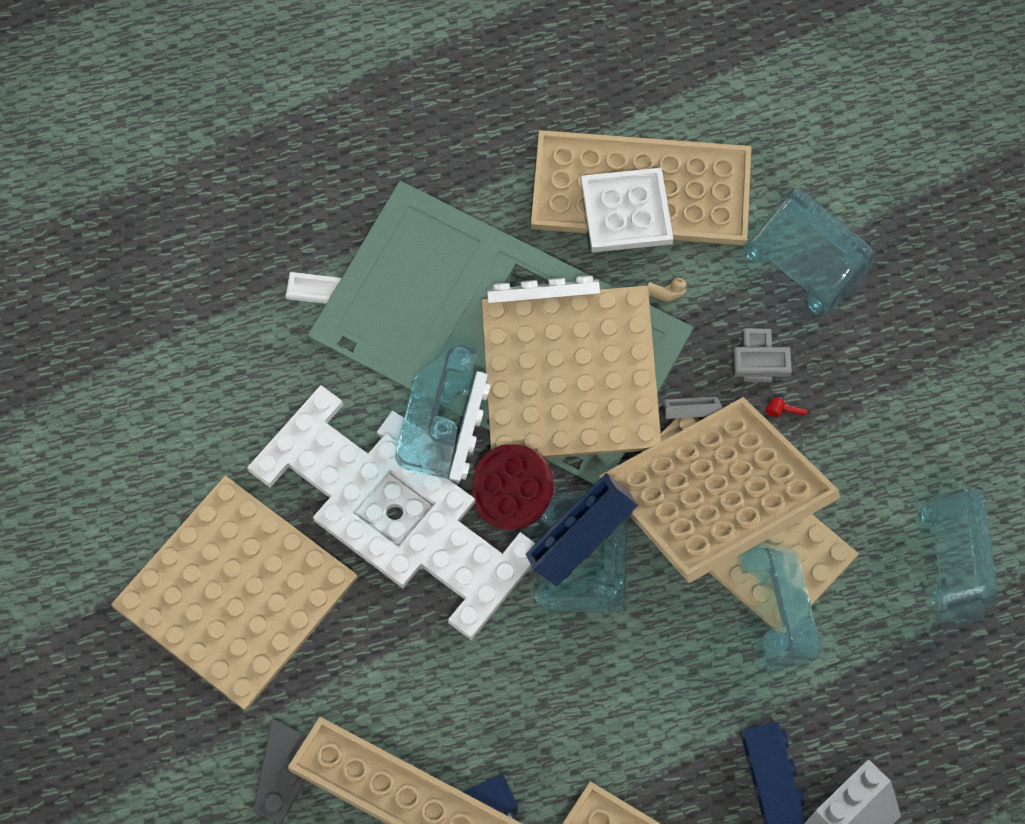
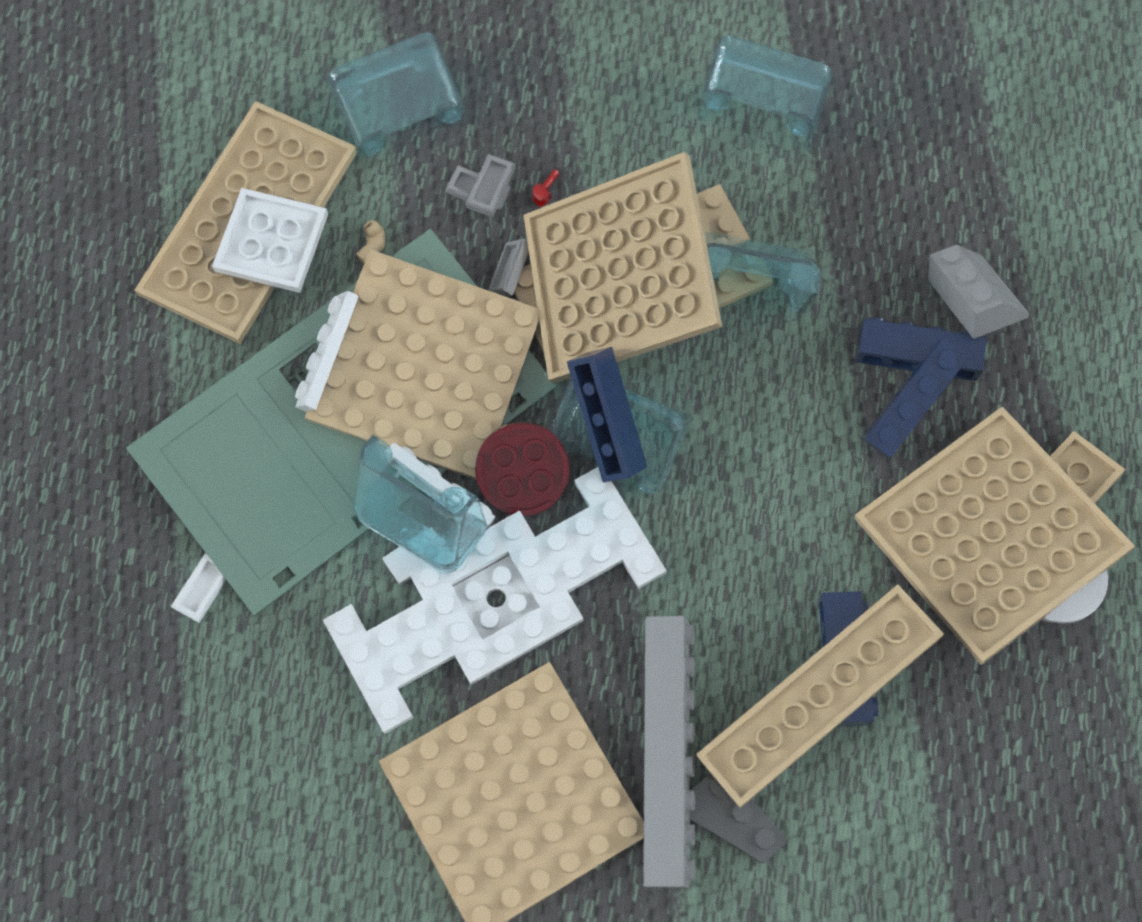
camera: 65 degrees left, 5 degrees up
(316, 696) = (668, 753): none -> light grey brick
(718, 791) = (915, 398): none -> dark blue brick

